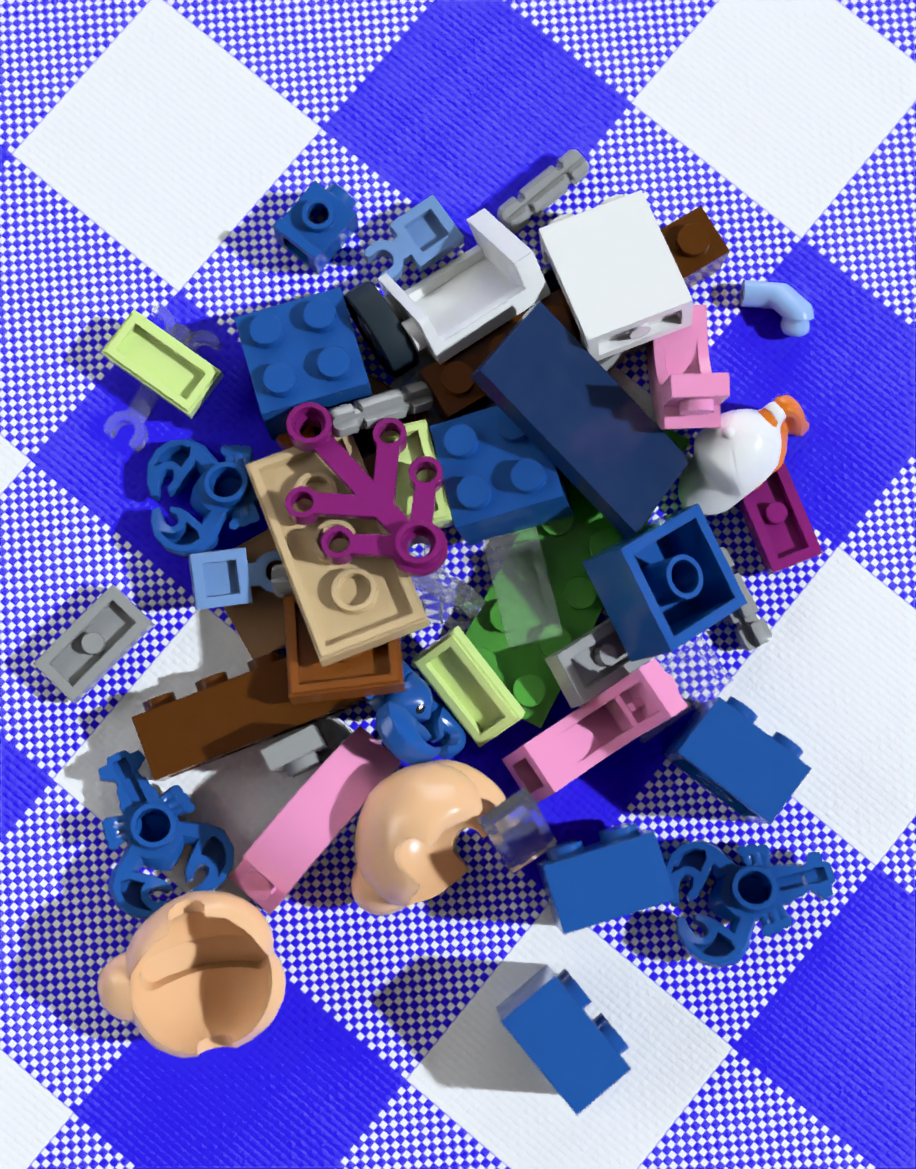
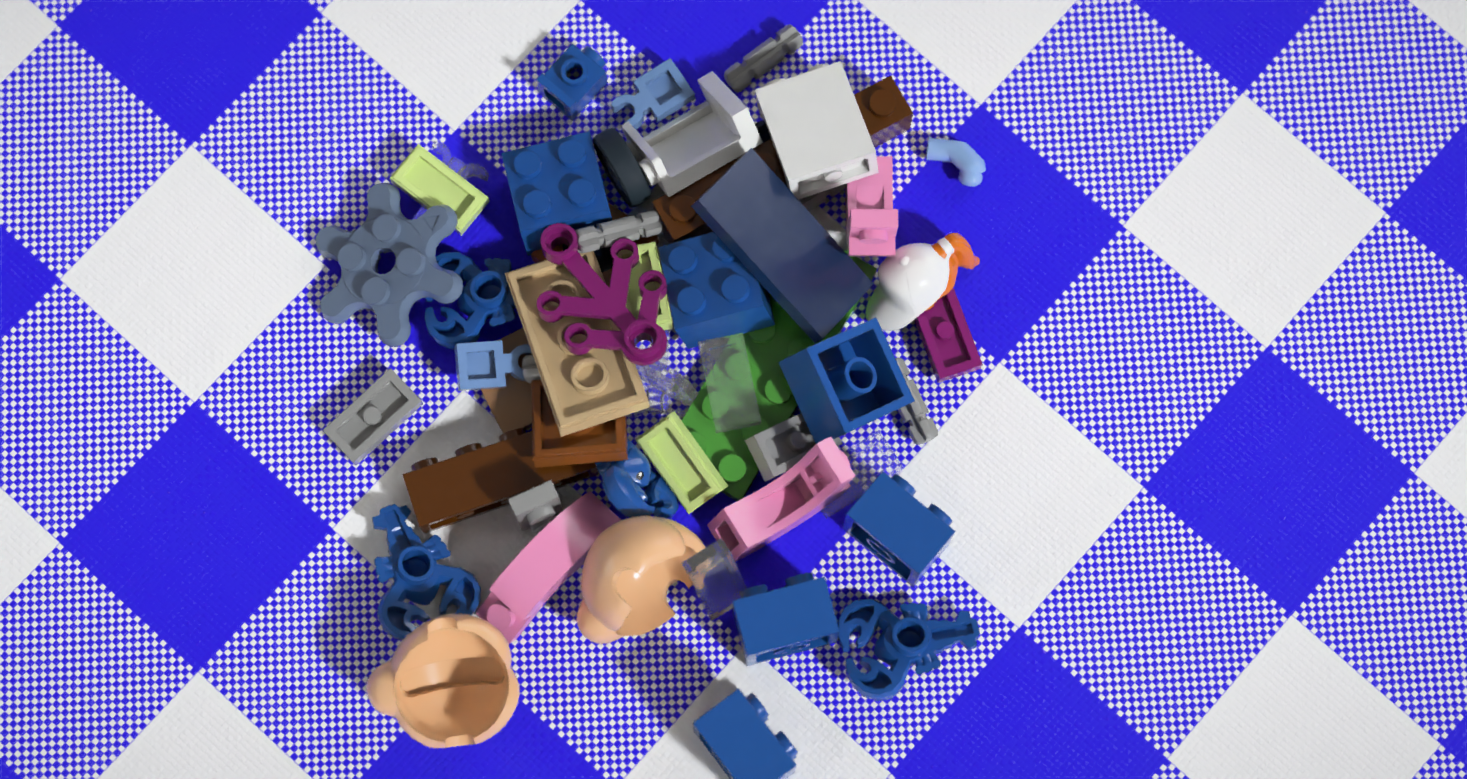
camera: 10 degrees right, 5 degrees down
(136, 463) = (413, 275): none -> sand blue plate

